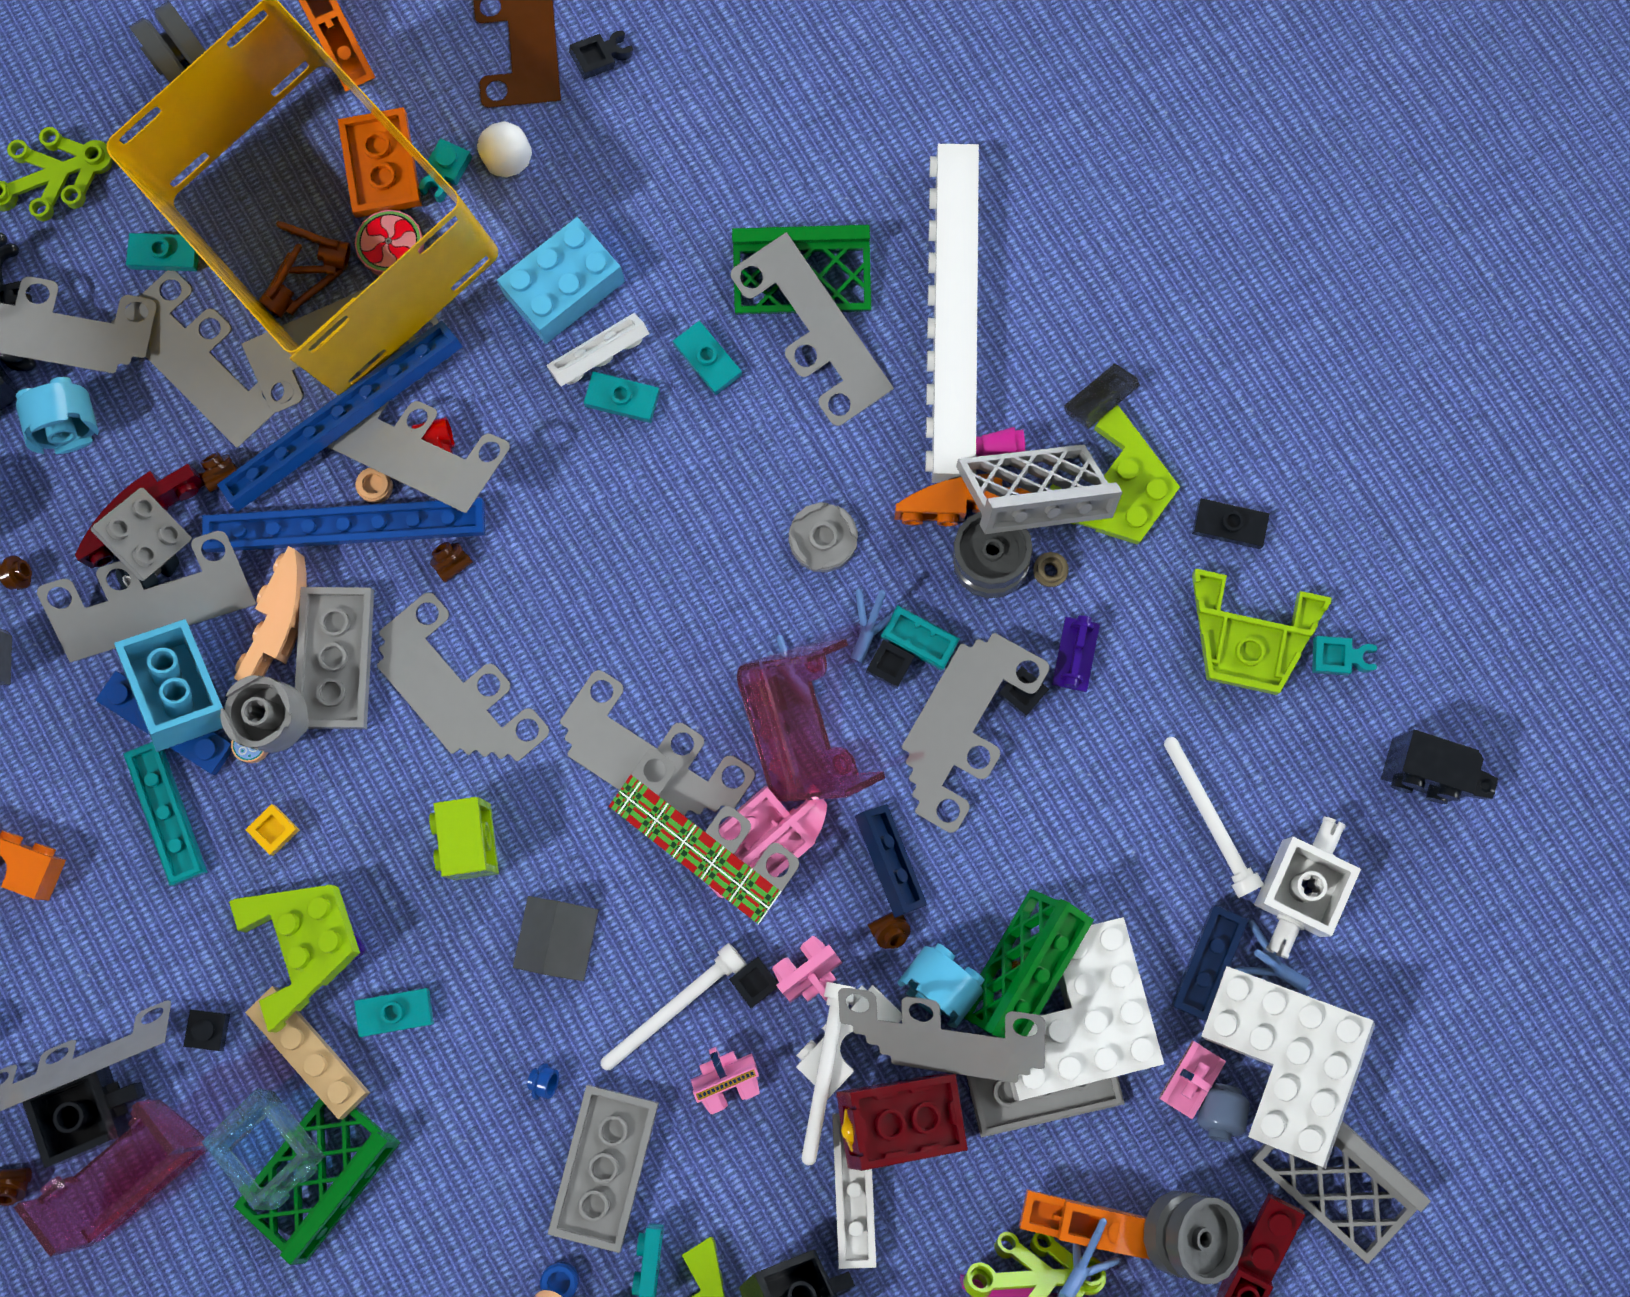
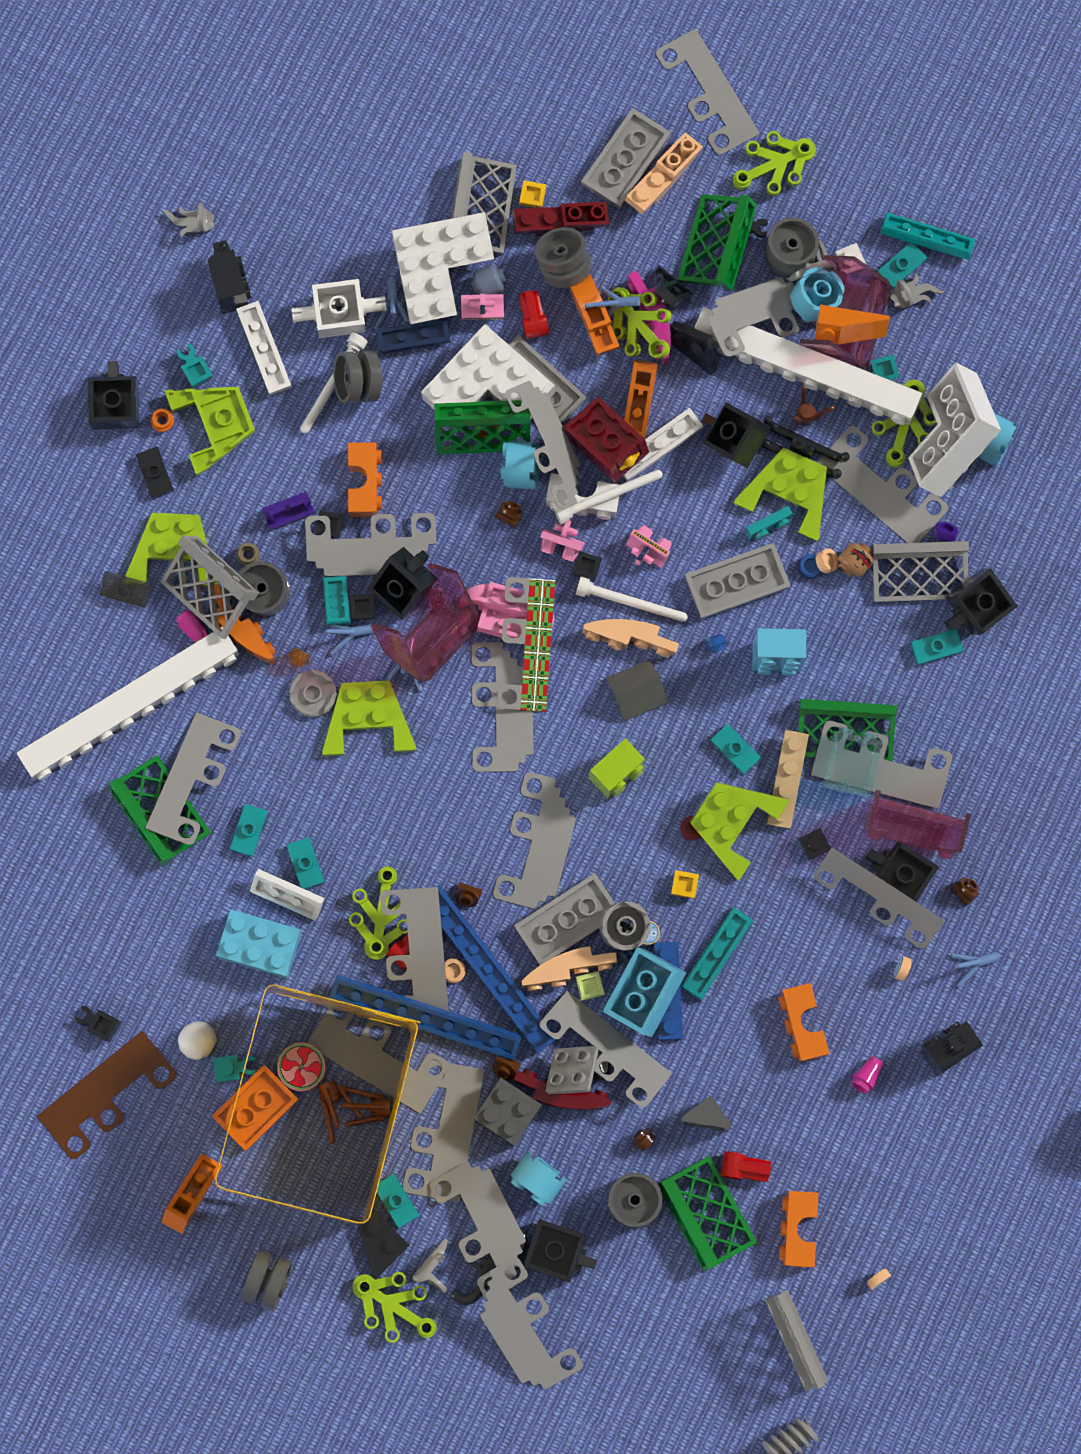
camera: 130 degrees left, 0 degrees up
(56, 235) = (428, 1266): none -> light grey piece
(125, 207) = (380, 1243): none -> black wing
(160, 433) = (507, 1112): none -> dark grey brick
(211, 1193) = (890, 778): none -> light grey piece
(237, 632) = (590, 986): none -> yellowish green tile
(342, 880) = (688, 830): none -> dark red tile
(462, 1155) = (779, 651): none -> medium azure brick
(474, 423) = (378, 918): none -> lime plant
(637, 967) = (622, 631): none -> light nougat slope
(761, 590) = (367, 707): none -> lime wing
(877, 545) = (298, 657): none -> clear orange plate
(884, 729) = (403, 582): none -> black hinge
(890, 860) = (472, 536): dark blue plate -> none
(934, 1211) = (640, 395): none -> orange slope
(1026, 759) = (364, 459): none -> orange arch
(1133, 1139) = (533, 320): none -> red piece
(1196, 848) = (357, 376): none -> dark grey wheel
(1301, 567) = (162, 413): none -> orange plate
(1311, 1257) = (532, 194): none -> yellow plate
(1312, 759) = (264, 348): none -> white plate
(1359, 527) = (113, 400): none -> black hinge
(1540, 785) = (194, 221): none -> light grey piece

